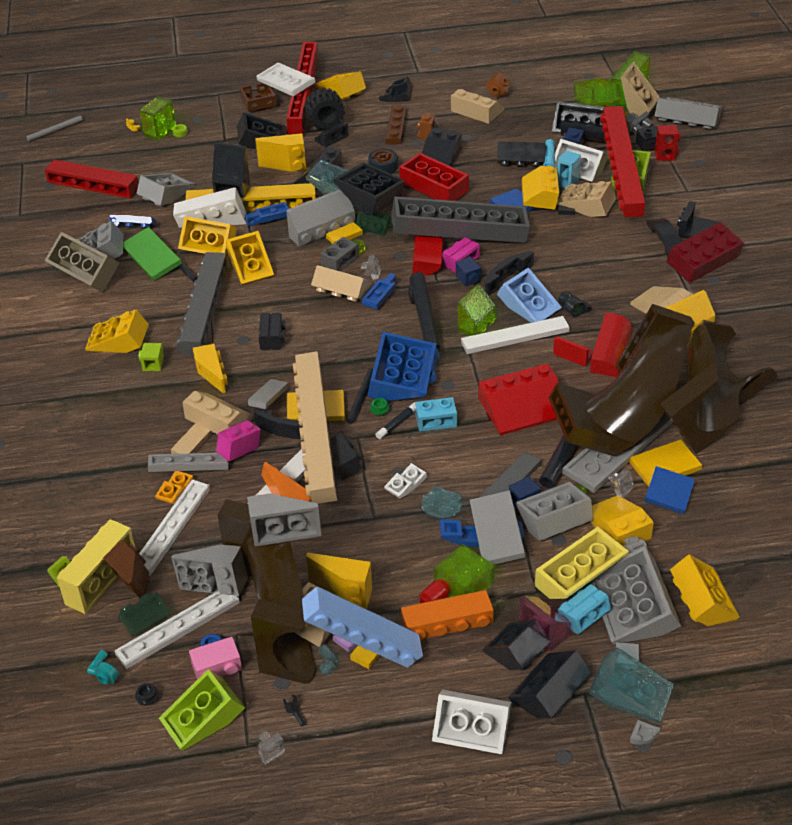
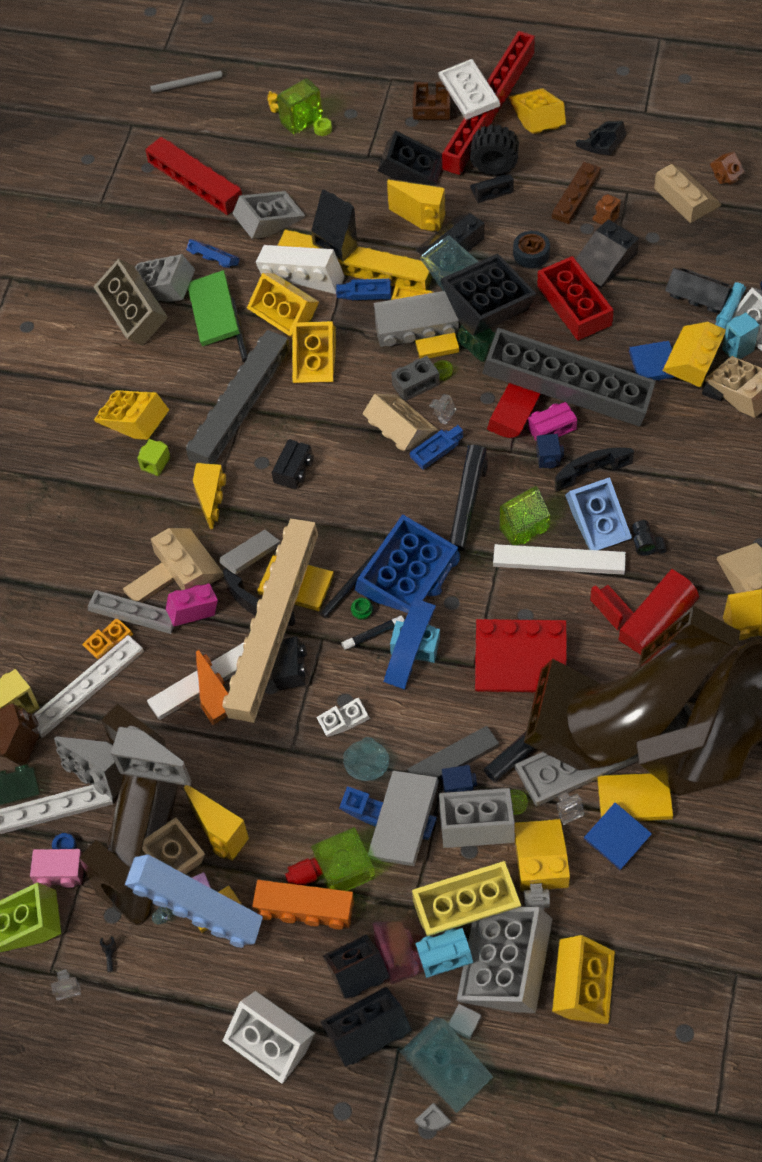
camera: 25 degrees right, 15 degrees up
(434, 415) = (408, 643): none -> blue slope

